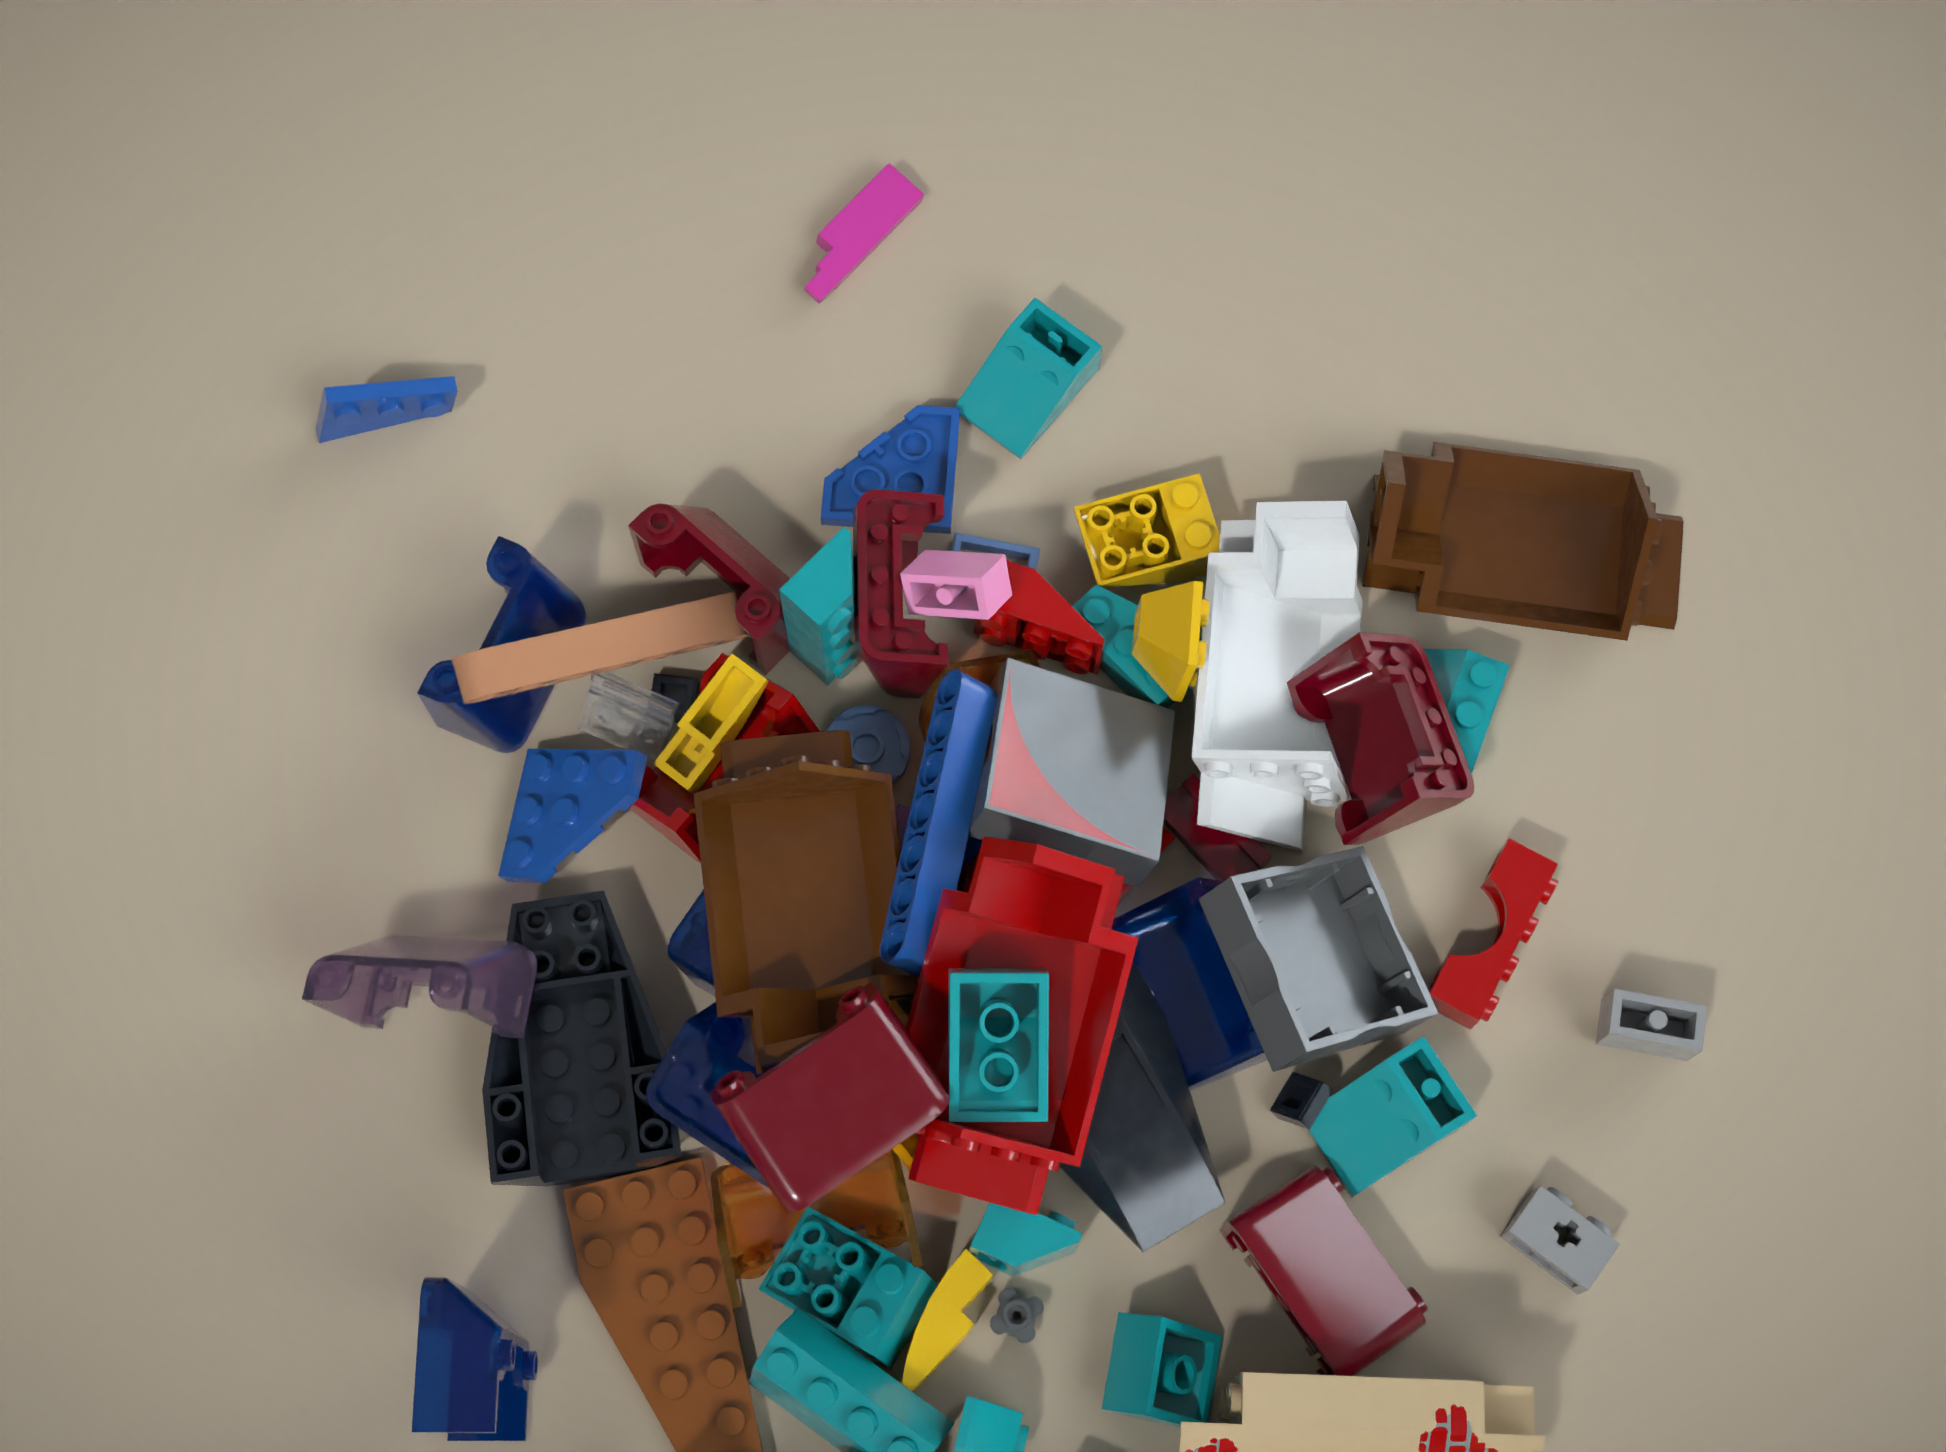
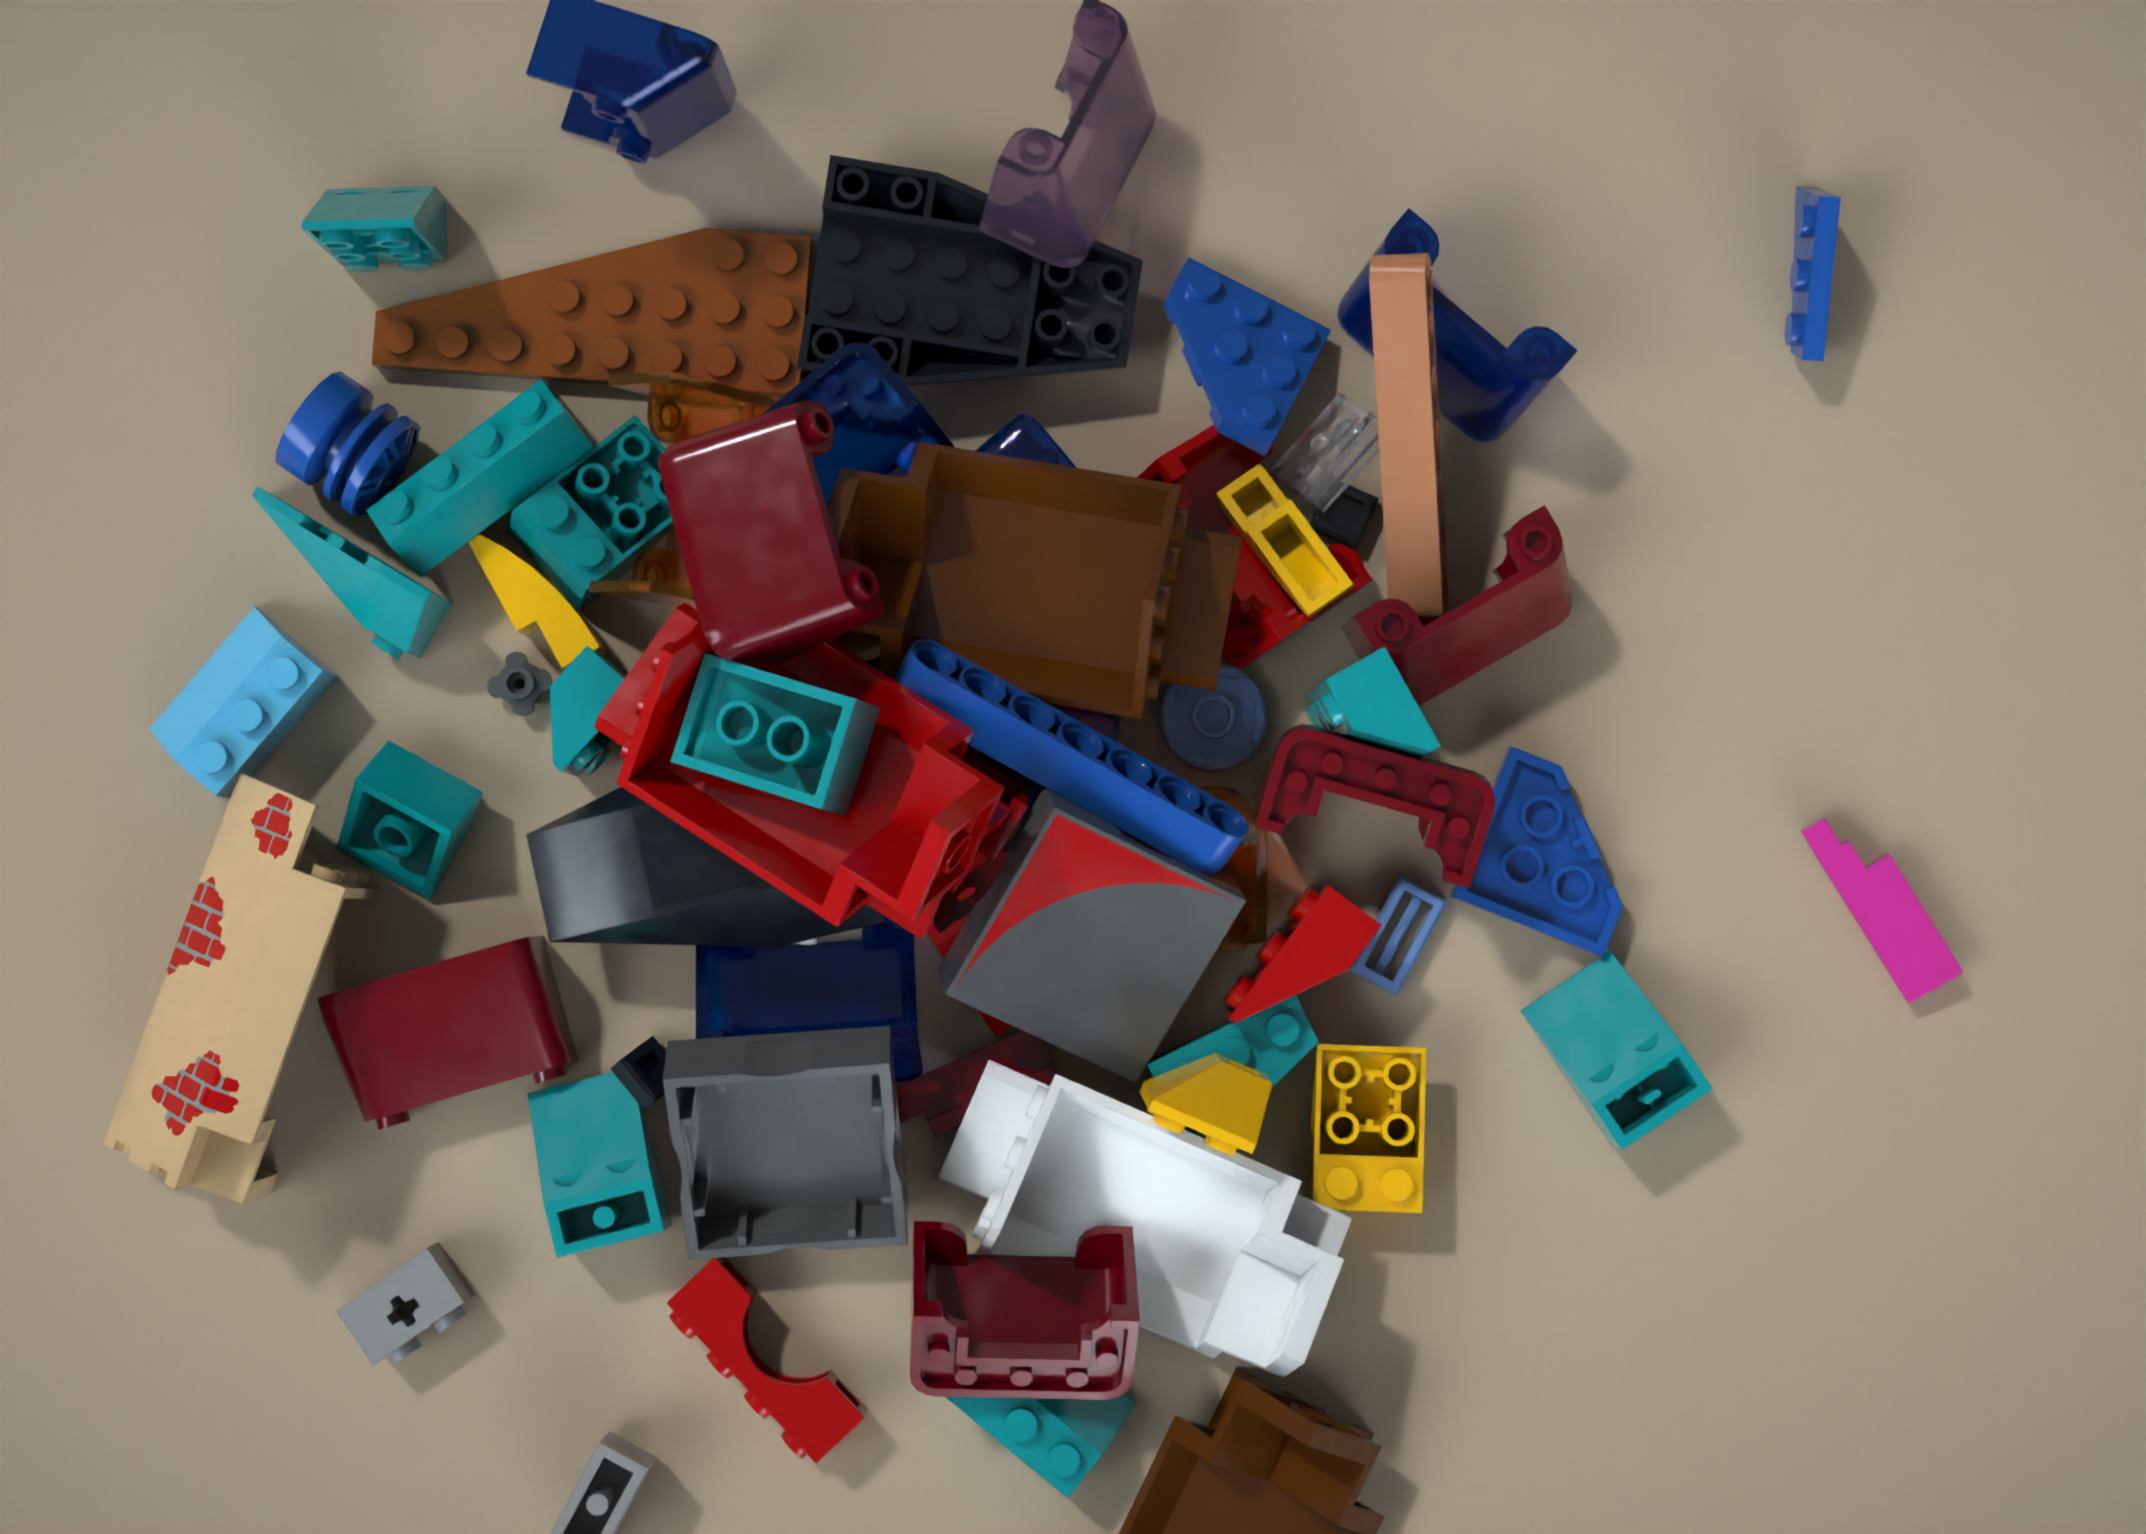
camera: 105 degrees right, 15 degrees up
(956, 584) = (1348, 866): bright pink brick -> none

